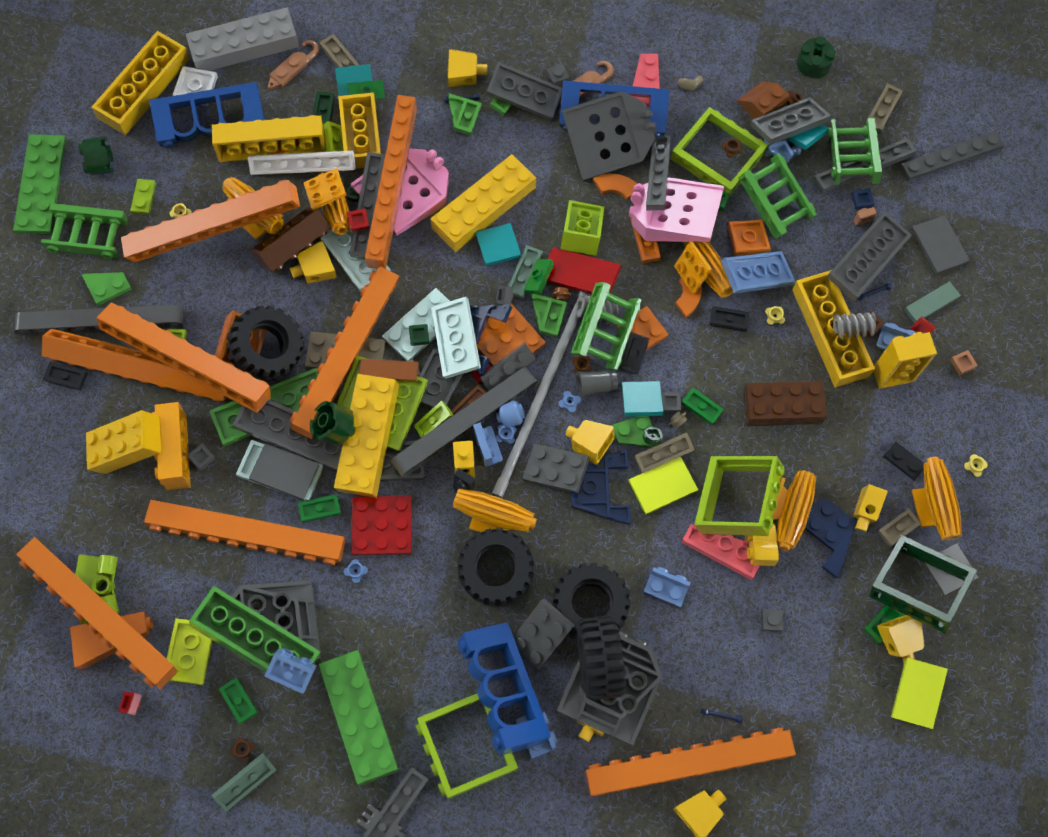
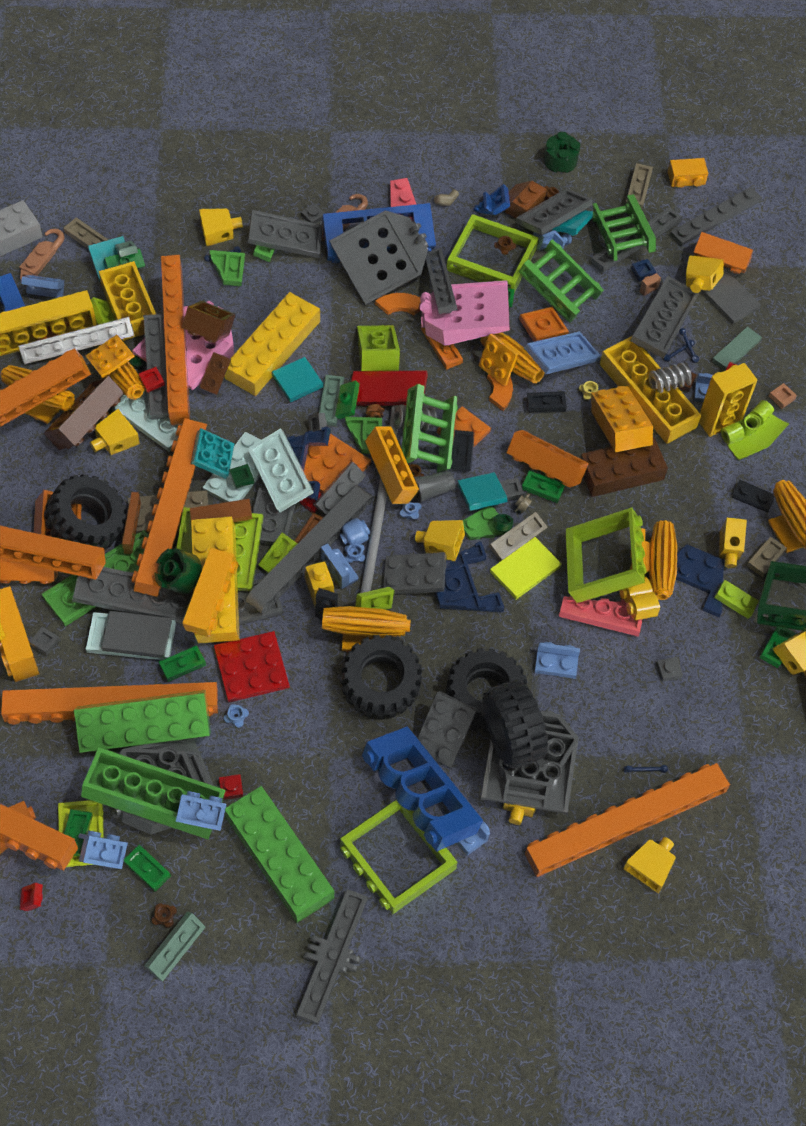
camera: 15 degrees left, 10 degrees down
(184, 651) = (78, 823): none -> green plate
(201, 675) = (101, 850): none -> medium blue bracket
(267, 560) = (142, 721): none -> bright green brick
(286, 98) = (43, 286): none -> medium blue bracket
(306, 360) = (131, 523): none -> dark orange tile
(324, 105) = (84, 281): dark green plate -> none
(333, 639) = (232, 785): none -> red plate
(355, 451) = (210, 592): none -> light orange brick
(369, 78) = (126, 248): none -> sand green tile
(397, 306) = (212, 453): none -> teal tile
(421, 223) = (215, 373): none -> reddish brown hinge
(425, 172) = (208, 321): none -> reddish brown brick
(510, 488) = (378, 598): none -> lime plate
(561, 355) = (391, 465): none -> light orange brick
(713, 380) = (547, 458): none -> orange brick
(735, 98) = (495, 202): none -> blue slope
(795, 356) = (621, 418): none -> light orange brick
(857, 565) = (736, 599): none -> lime plate
(888, 303) = (695, 358): none -> dark blue hinge
(913, 402) = (747, 441): none -> lime panel
(920, 216) = (703, 273): none -> yellow torso
(936, 103) = (687, 172): none -> light orange brick
(946, 199) = (733, 255): none -> orange slope

